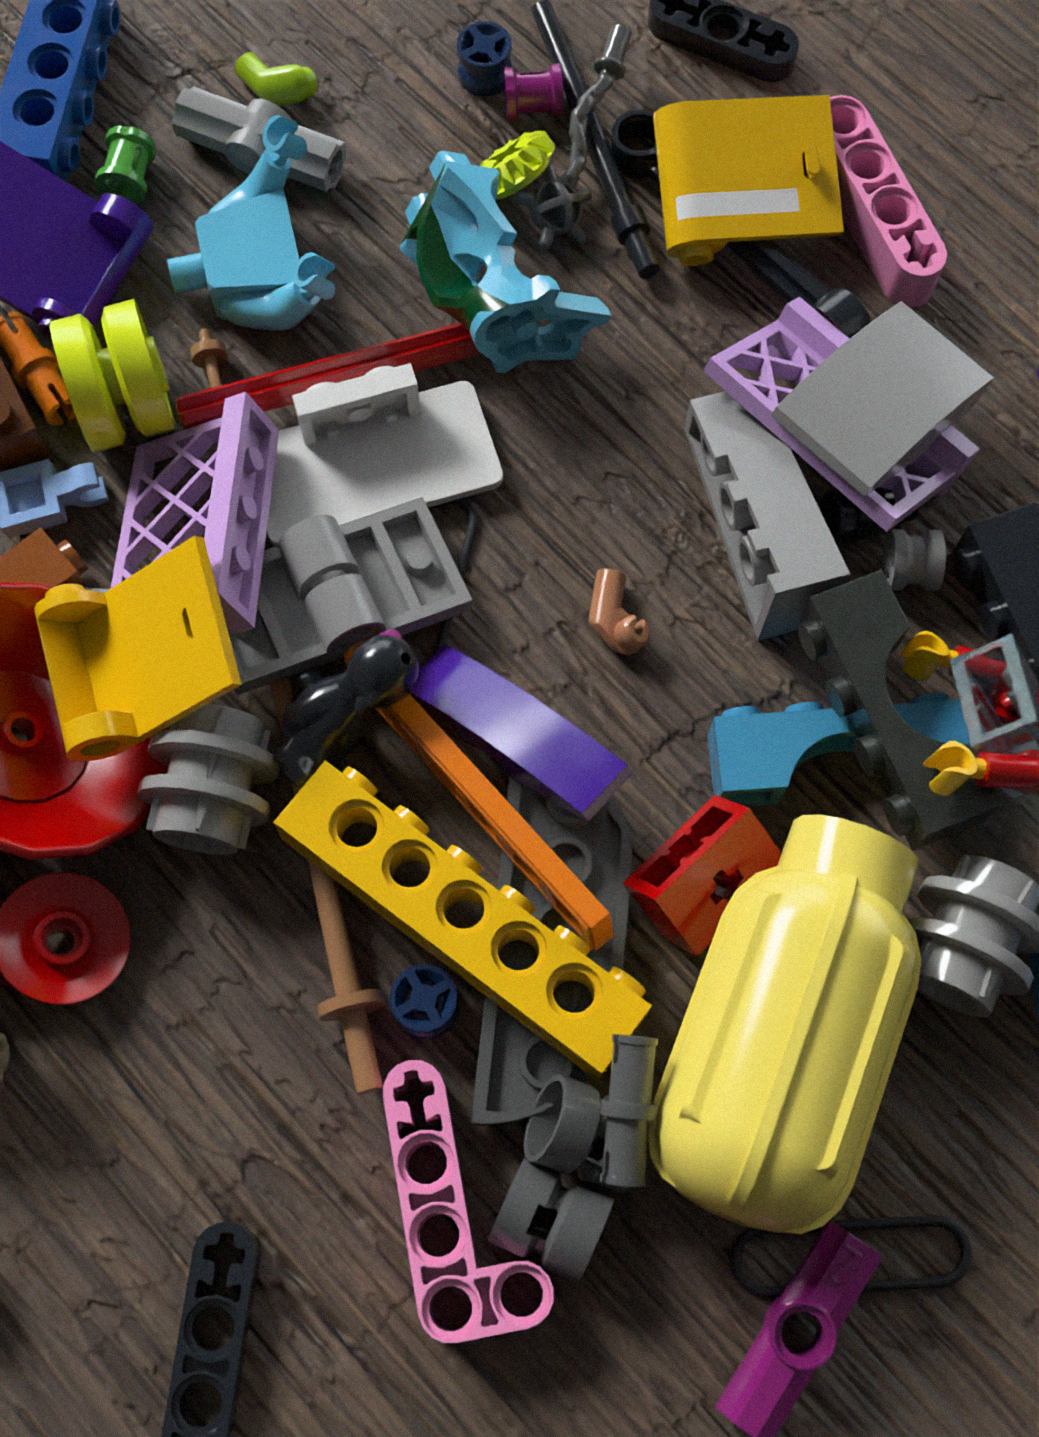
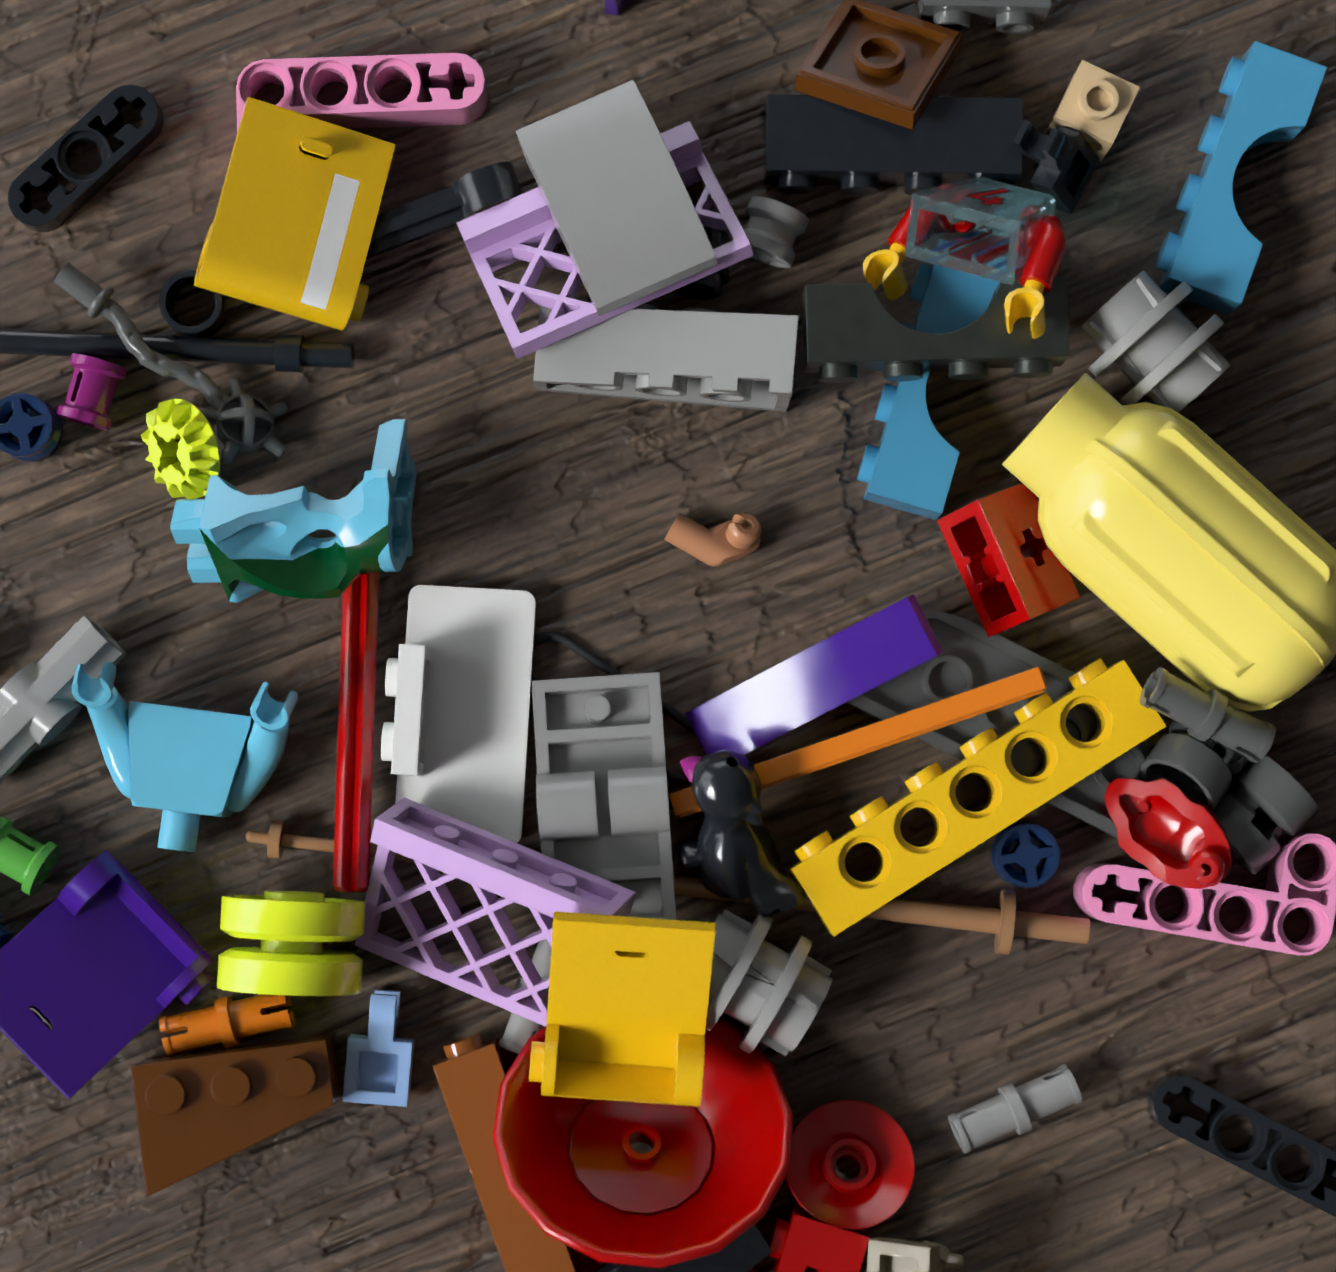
camera: 70 degrees left, 15 degrees up
(168, 1084) = (1015, 1108): none -> light grey pin
(496, 1125) = (1169, 832): none -> red arm

